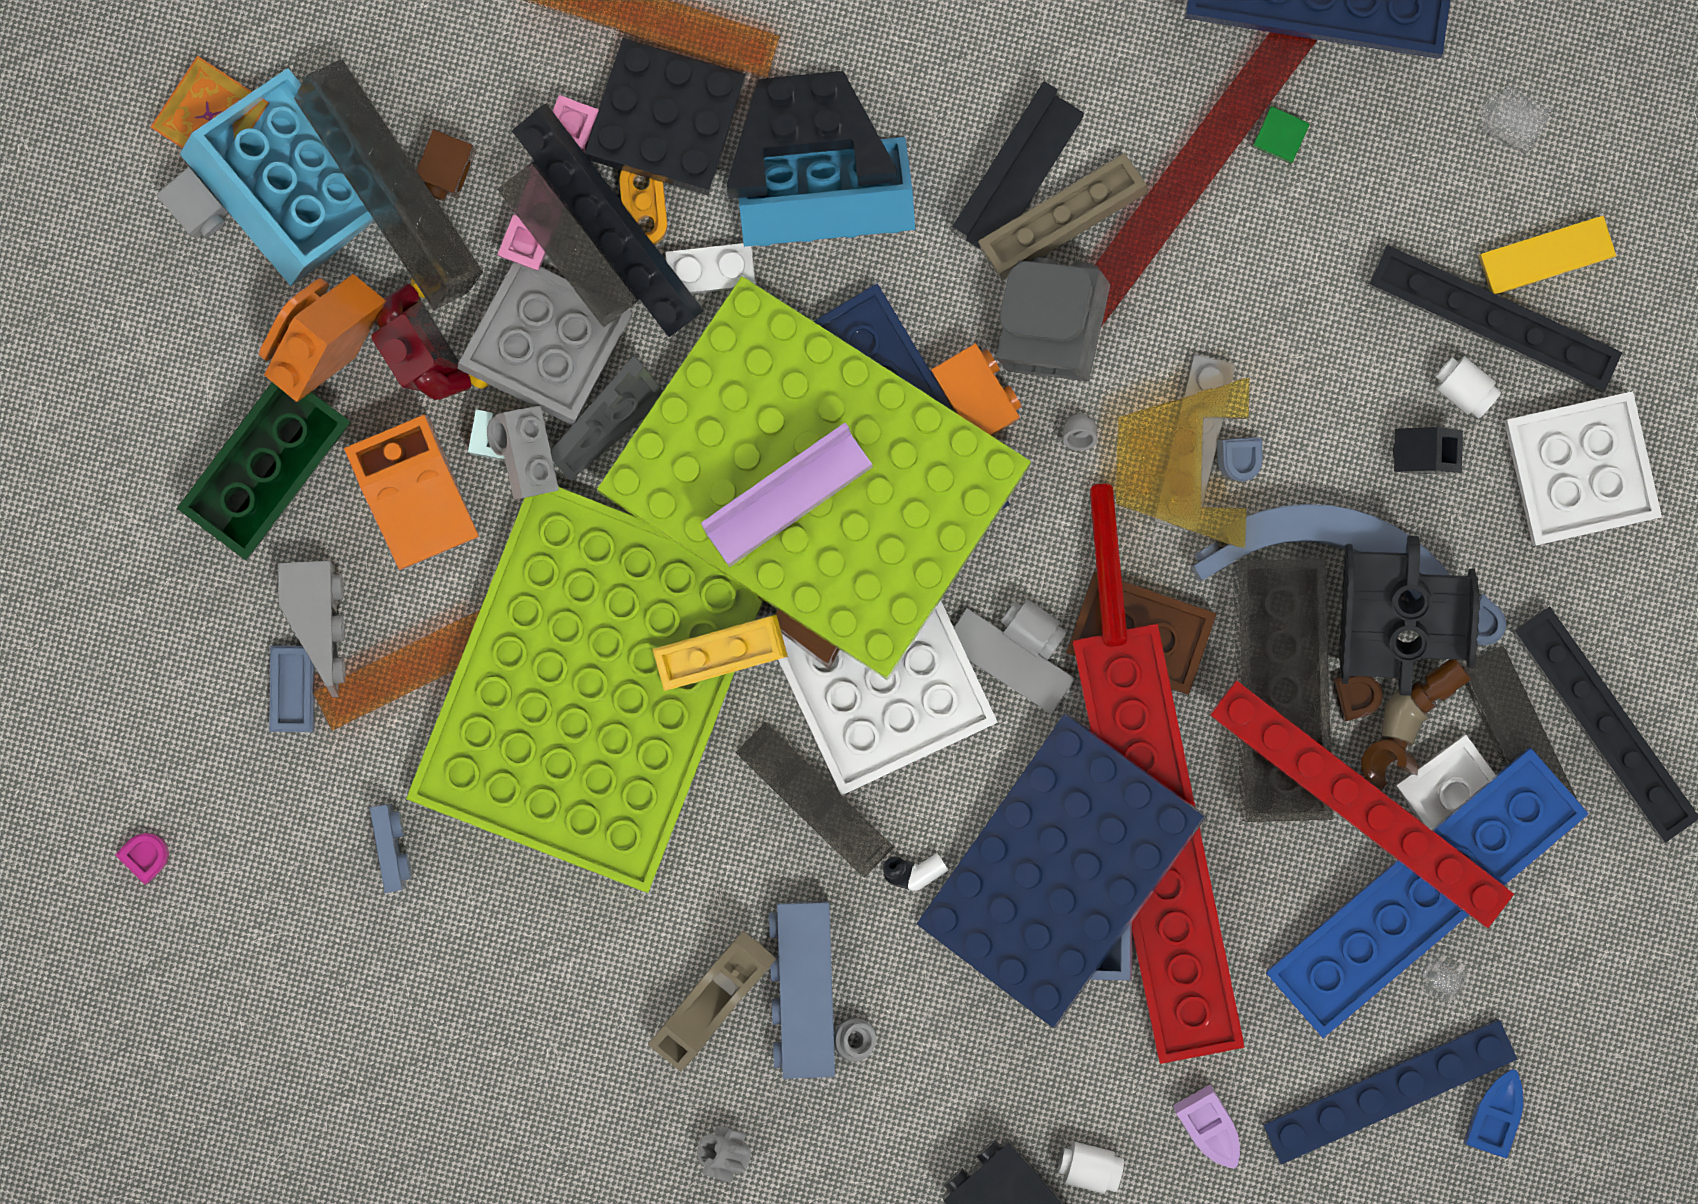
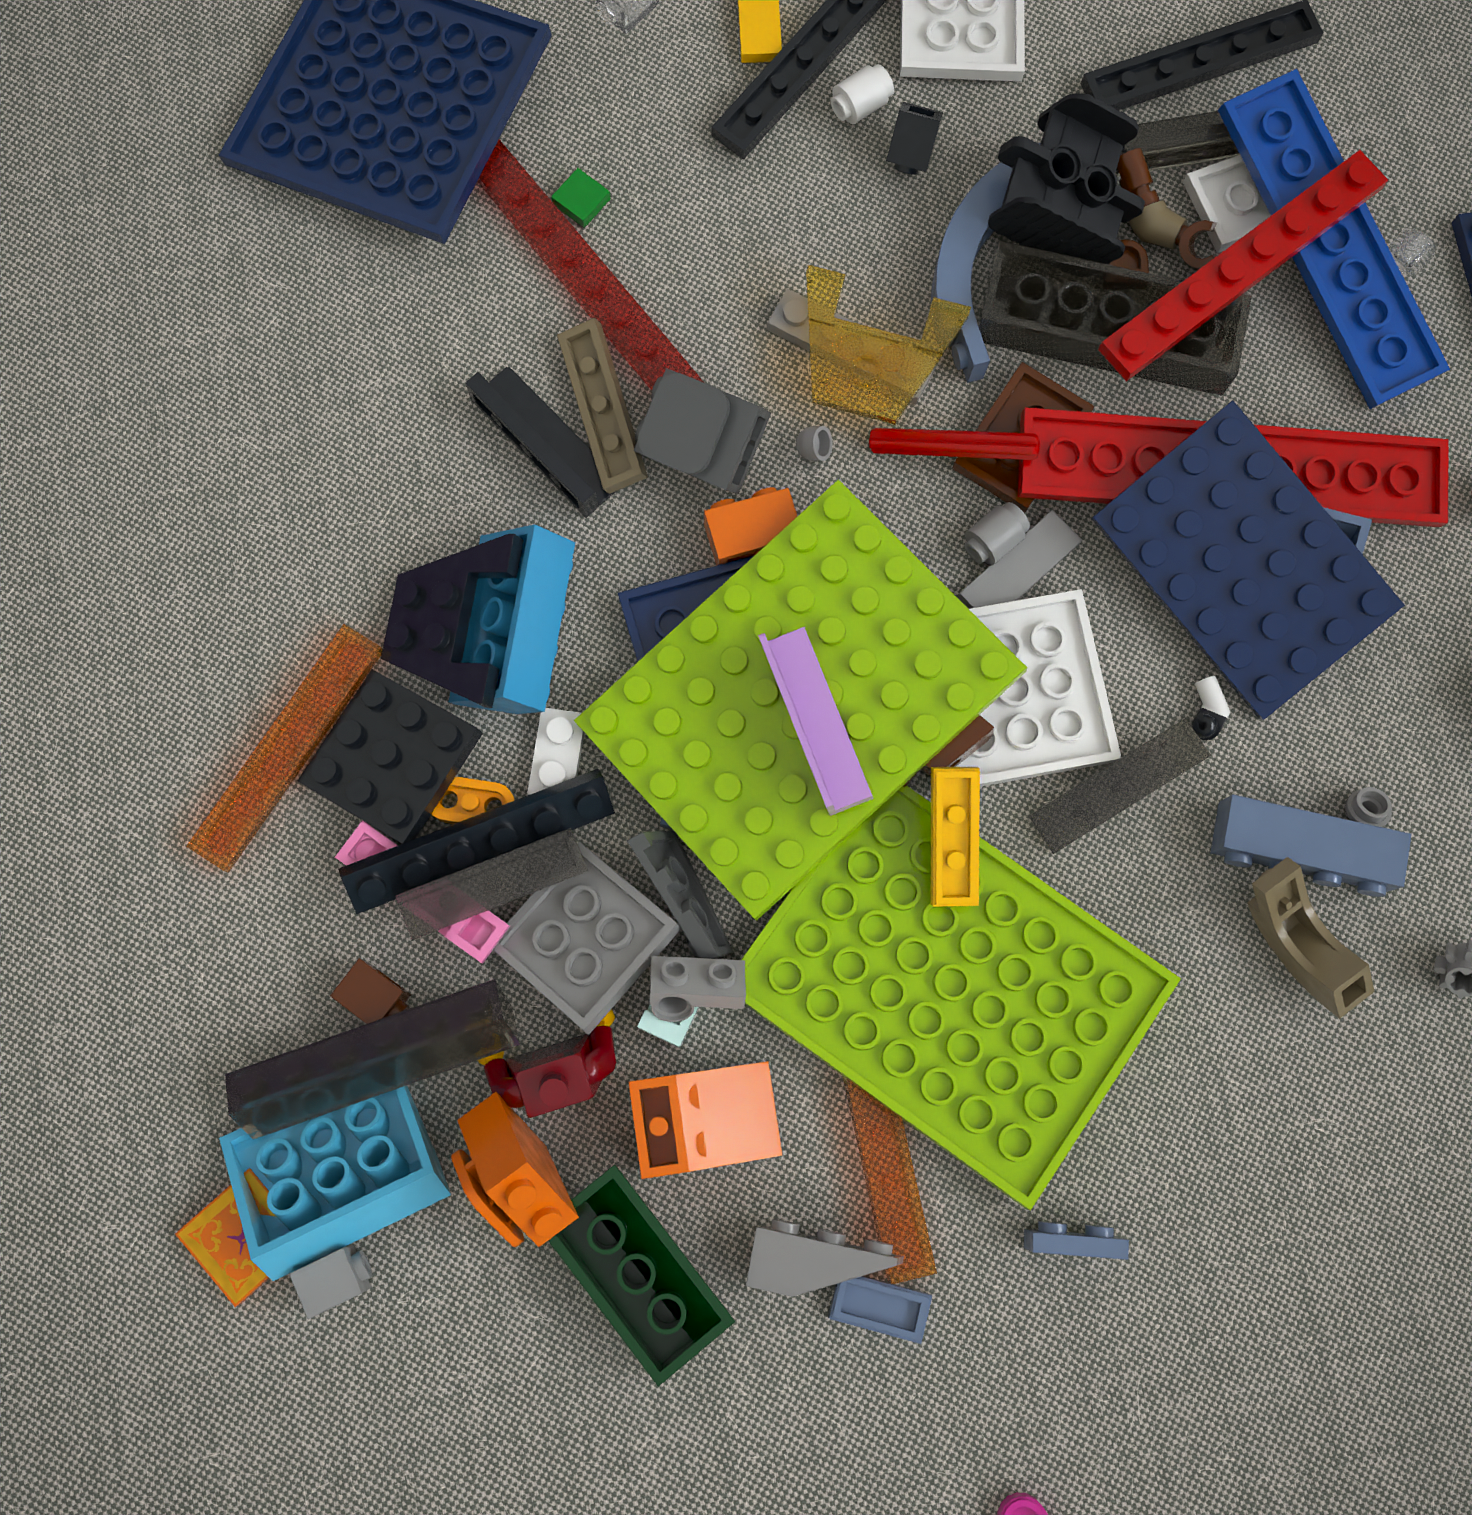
camera: 75 degrees left, 10 degrees down
(1240, 457) = (876, 307): sand blue tile -> none

